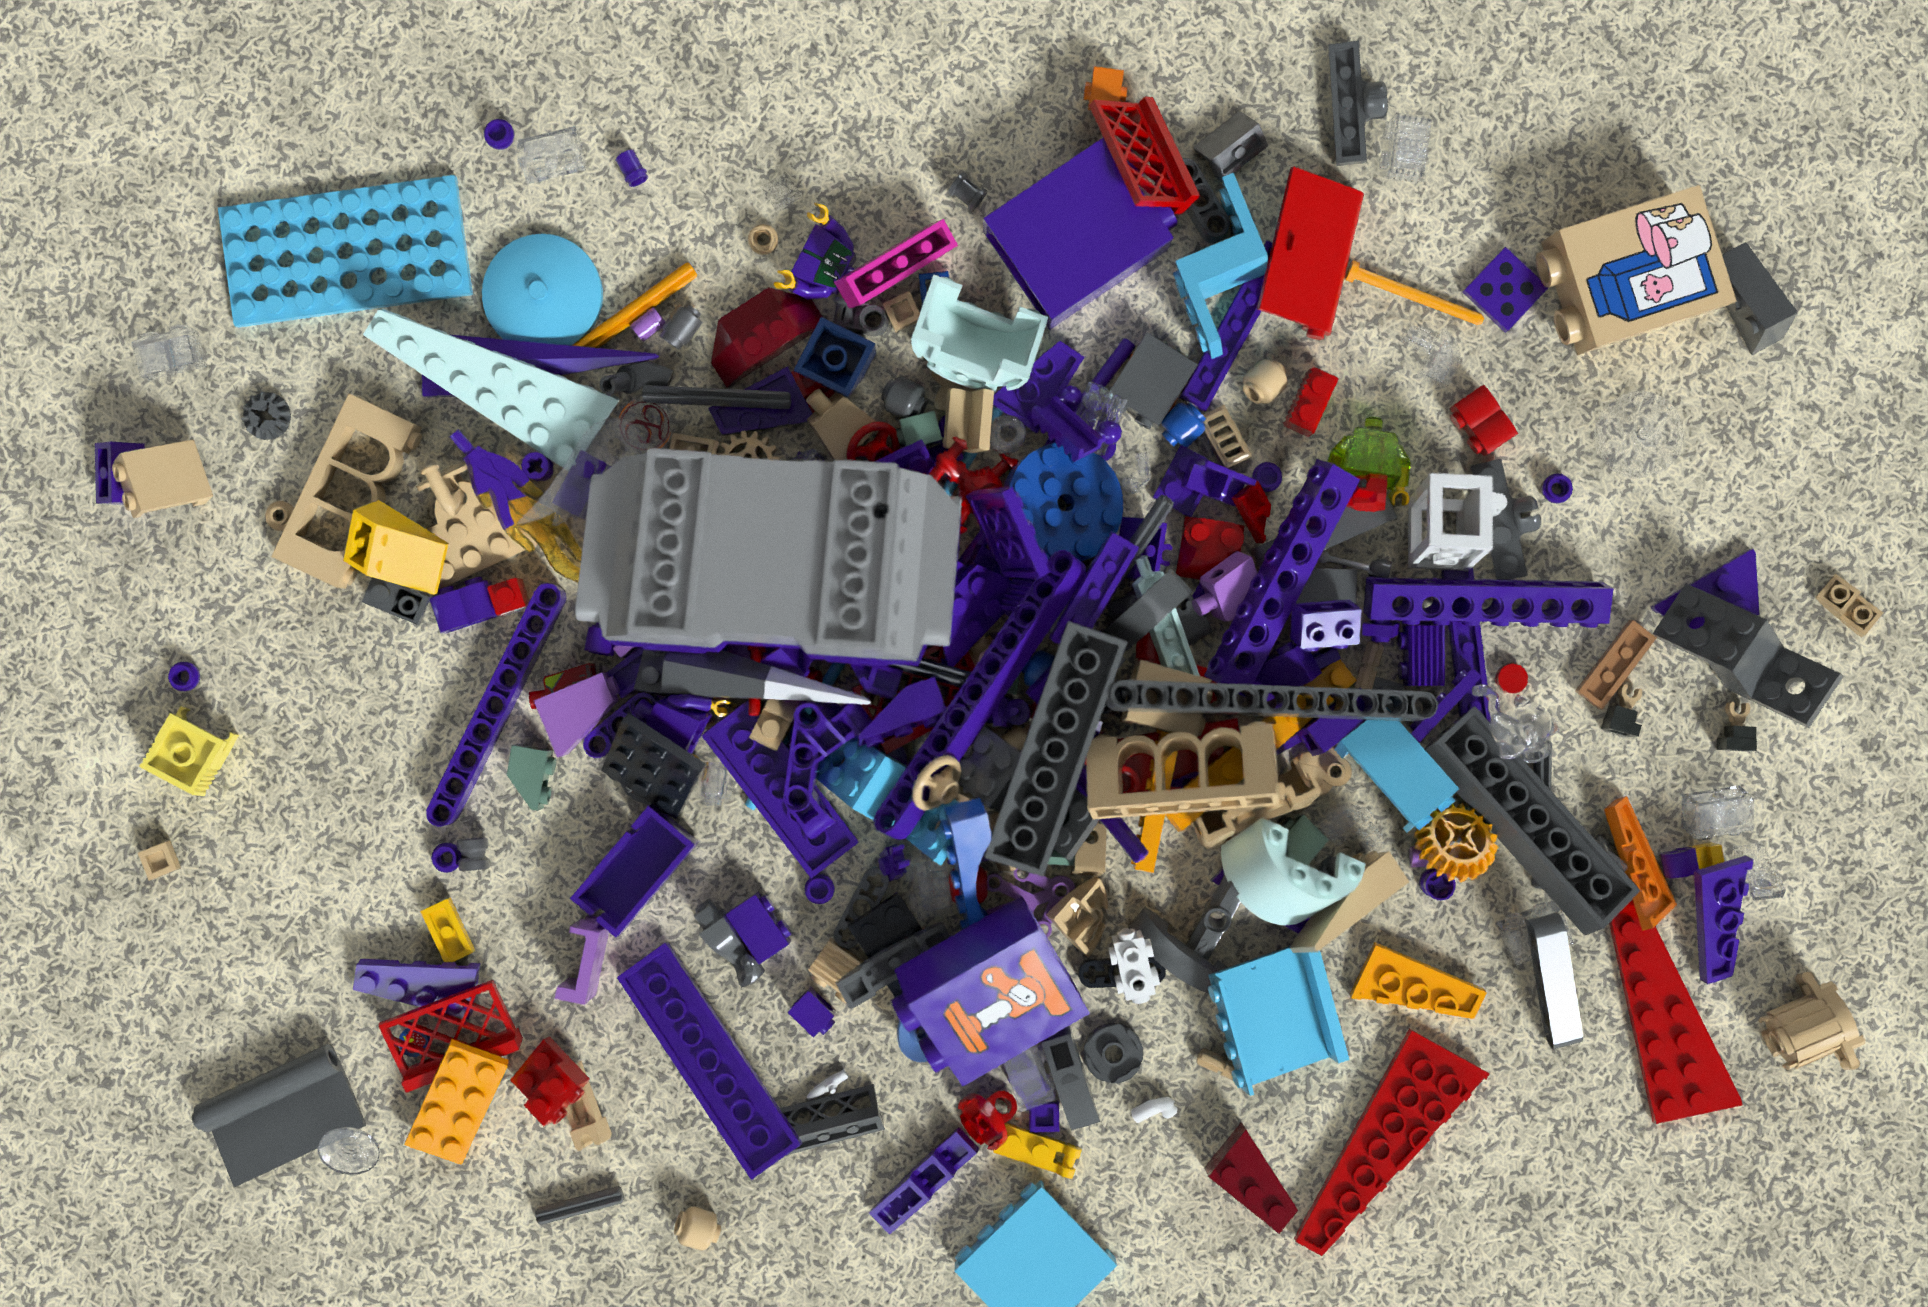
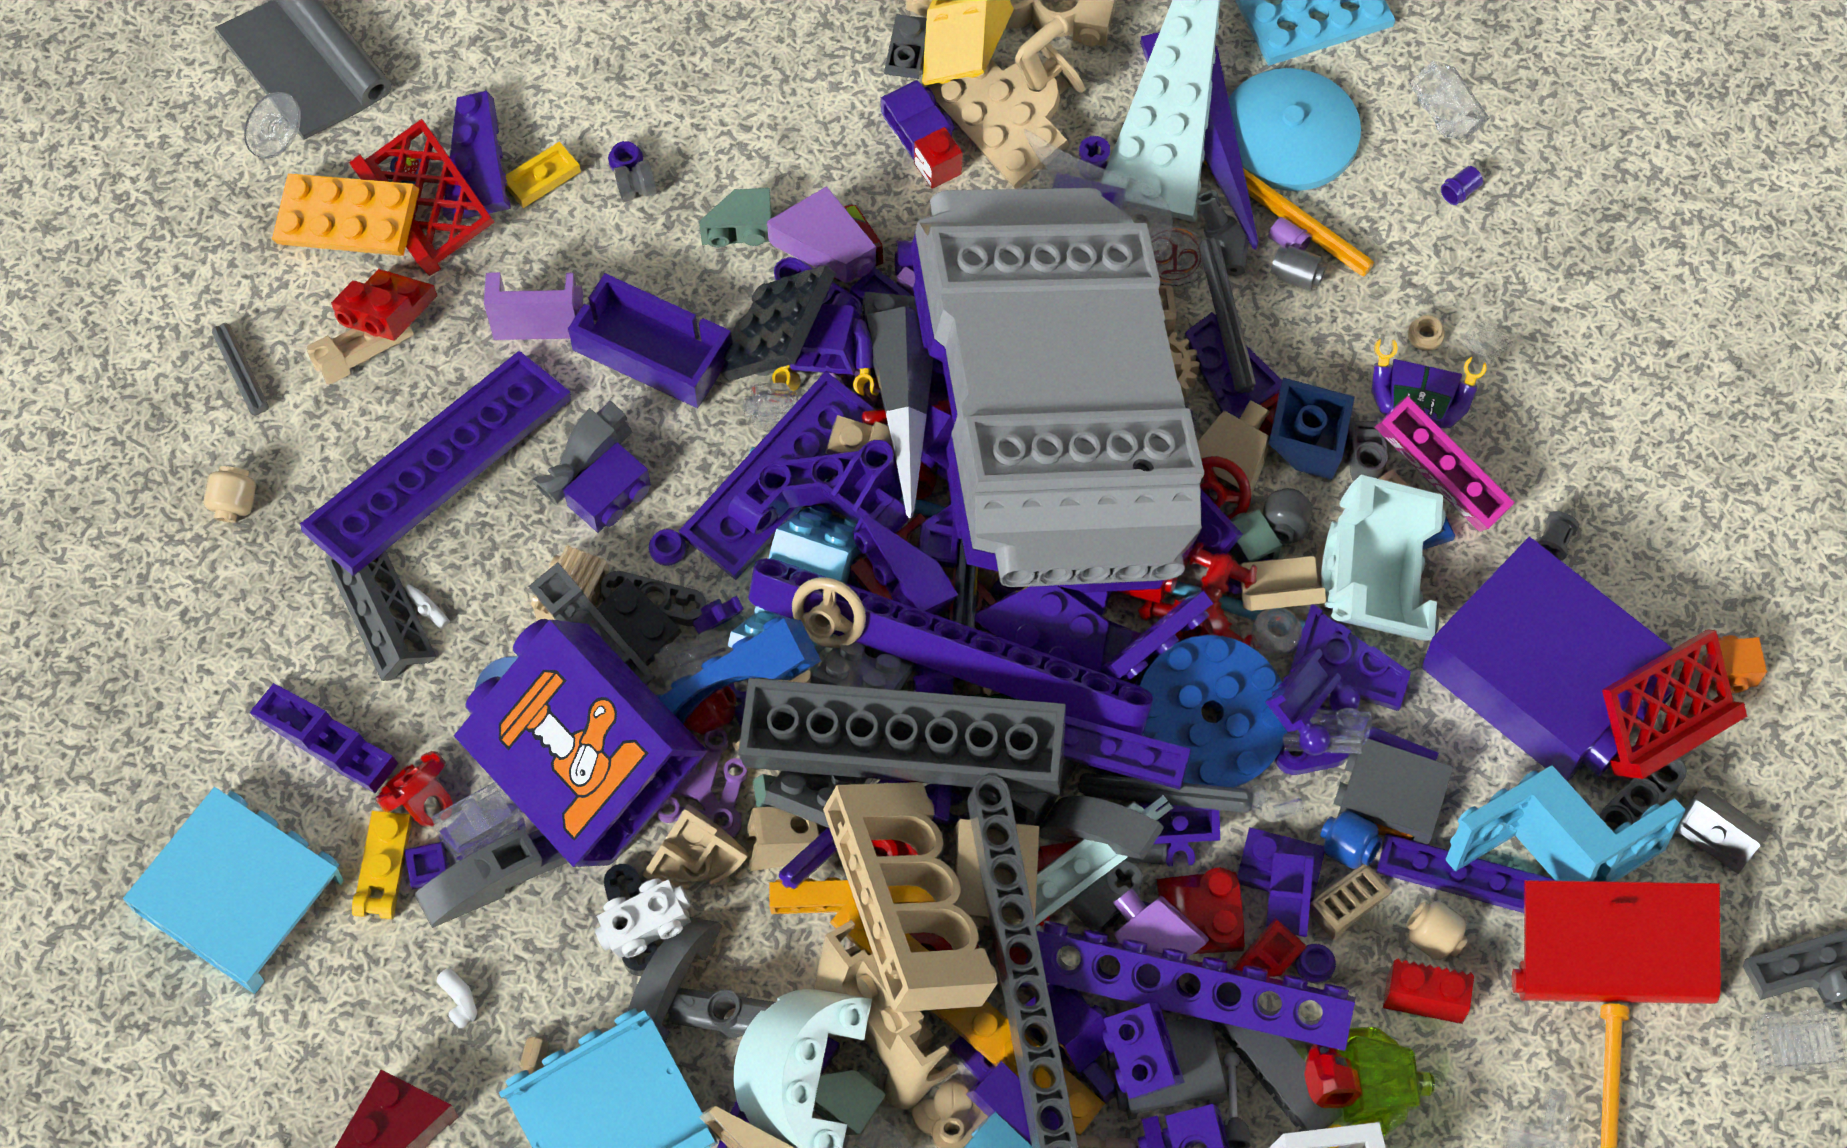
camera: 80 degrees right, 25 degrees down
(484, 713) = (797, 161): dark purple beam -> none
(494, 476) = (1072, 106): piece -> none
(499, 134) = (1455, 52): dark purple plate -> none
(761, 332) = (1316, 349): dark red wedge -> none
(813, 1013) = (514, 566): dark purple brick -> none
(1106, 1036) = (529, 954): dark grey tile -> none

